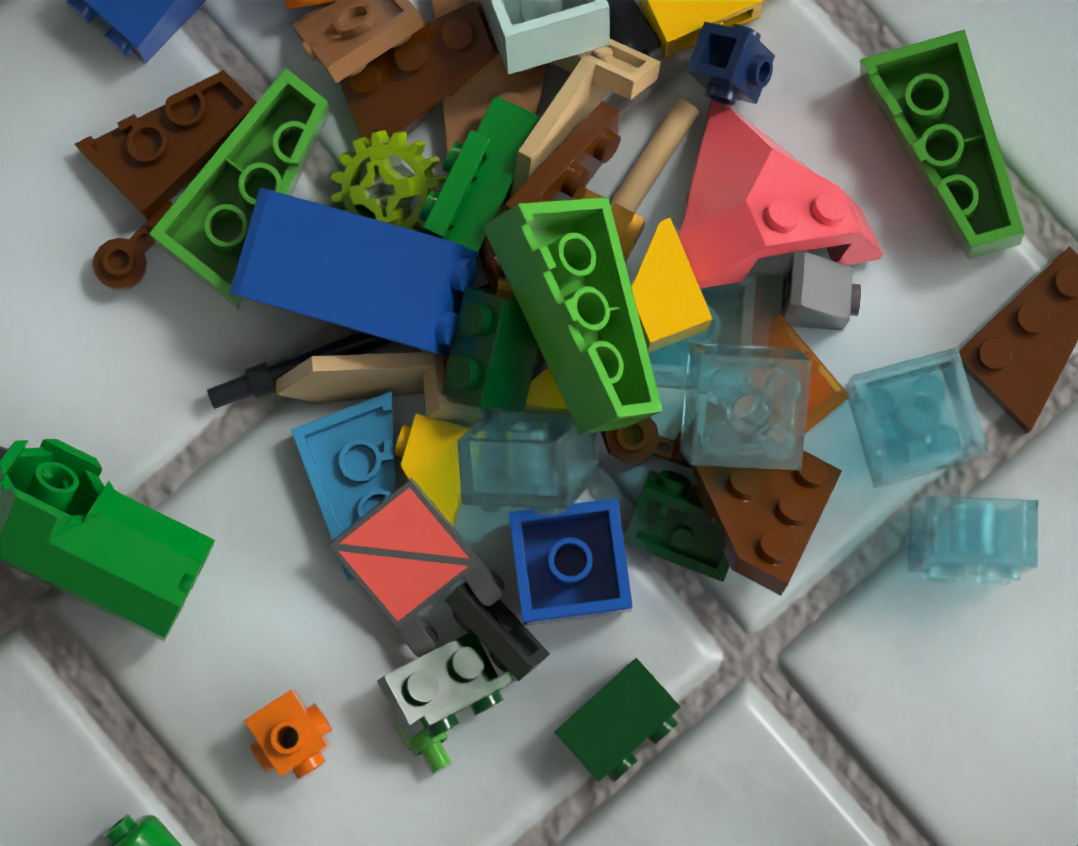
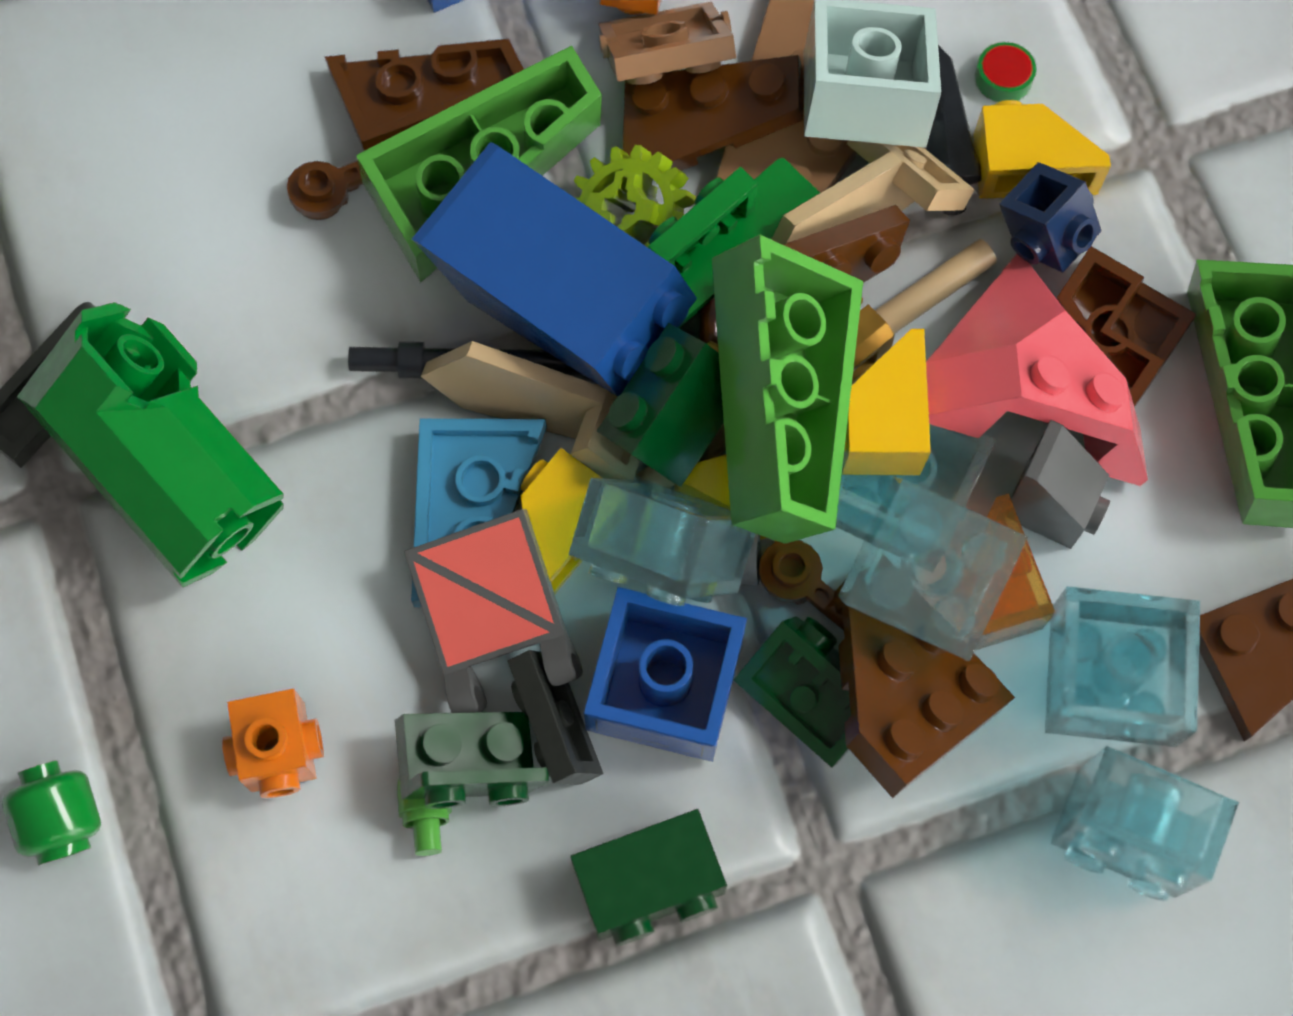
camera: 20 degrees right, 10 degrees down
(819, 127) = (1125, 318): none -> reddish brown slope

